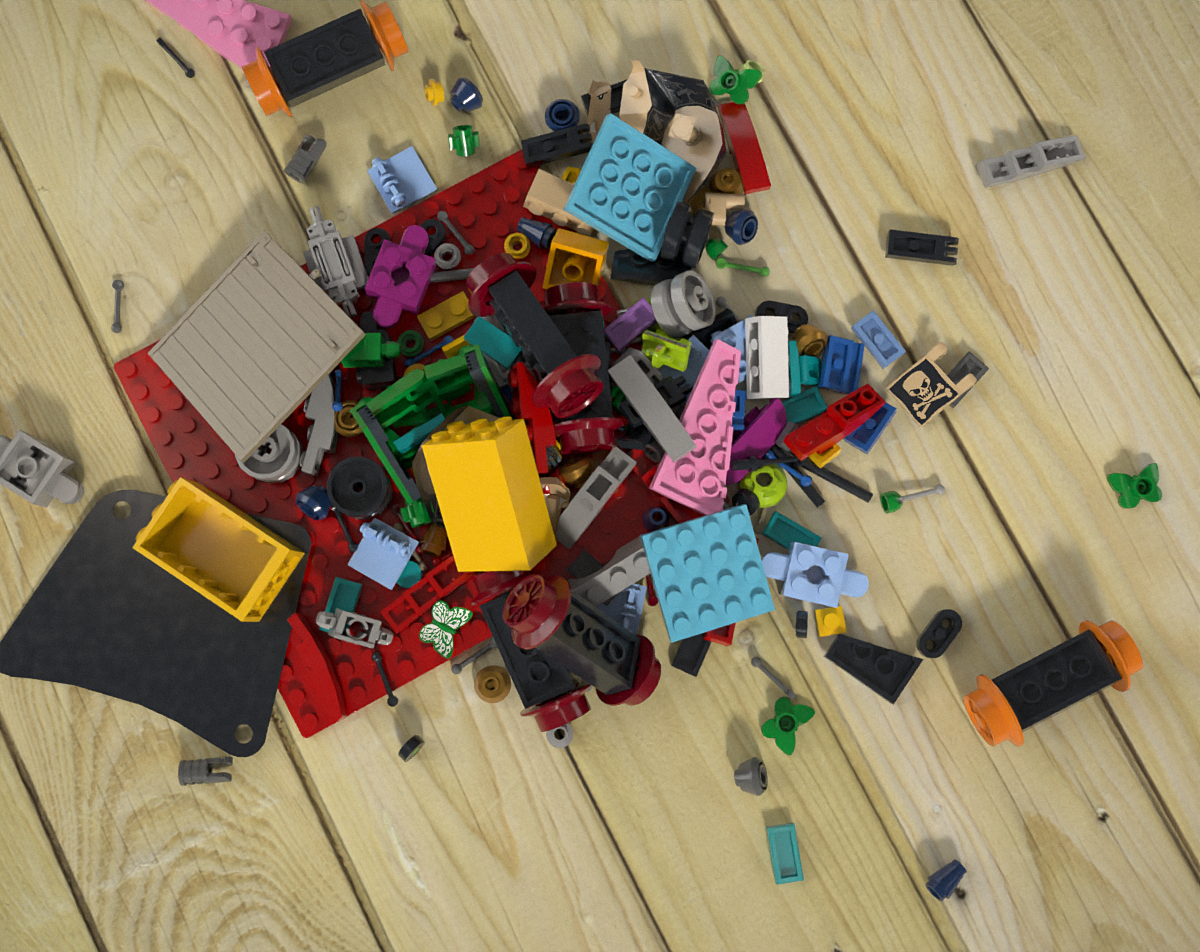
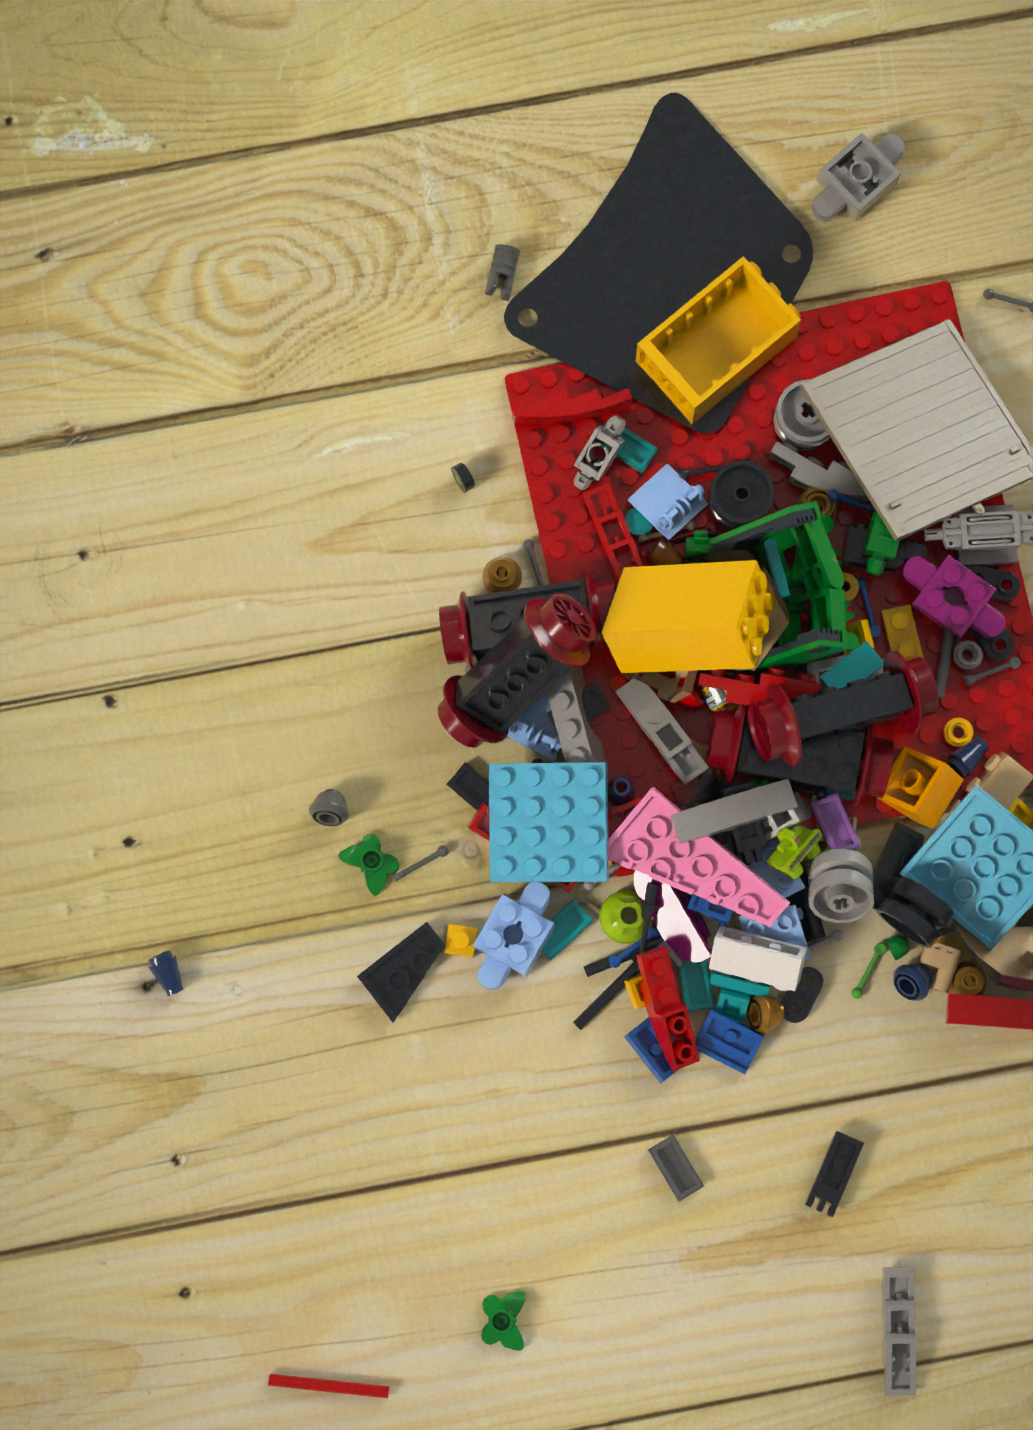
camera: 110 degrees right, 0 degrees up
(314, 502) = (741, 446): dark blue cone -> none
(392, 701) = (516, 472): black hinge -> none
(407, 336) = (888, 583): green plate -> none
(443, 627) = (573, 541): animal -> none
(560, 743) = (430, 638): light grey plate -> none
(576, 470) = (696, 722): pearl gold cone -> none
(747, 497) = (611, 891): black tile -> none
(784, 853) = (243, 819): teal tile -> none
(801, 624) = (466, 908): black tile -> none
(878, 339) = (745, 1090): medium blue plate -> none
(892, 501) = (566, 1048): hinge -> none
(926, 389) = (675, 1124): flag -> none
(940, 636) = (413, 1050): black plate -> none
(1053, 682) = (329, 1142): brick -> none

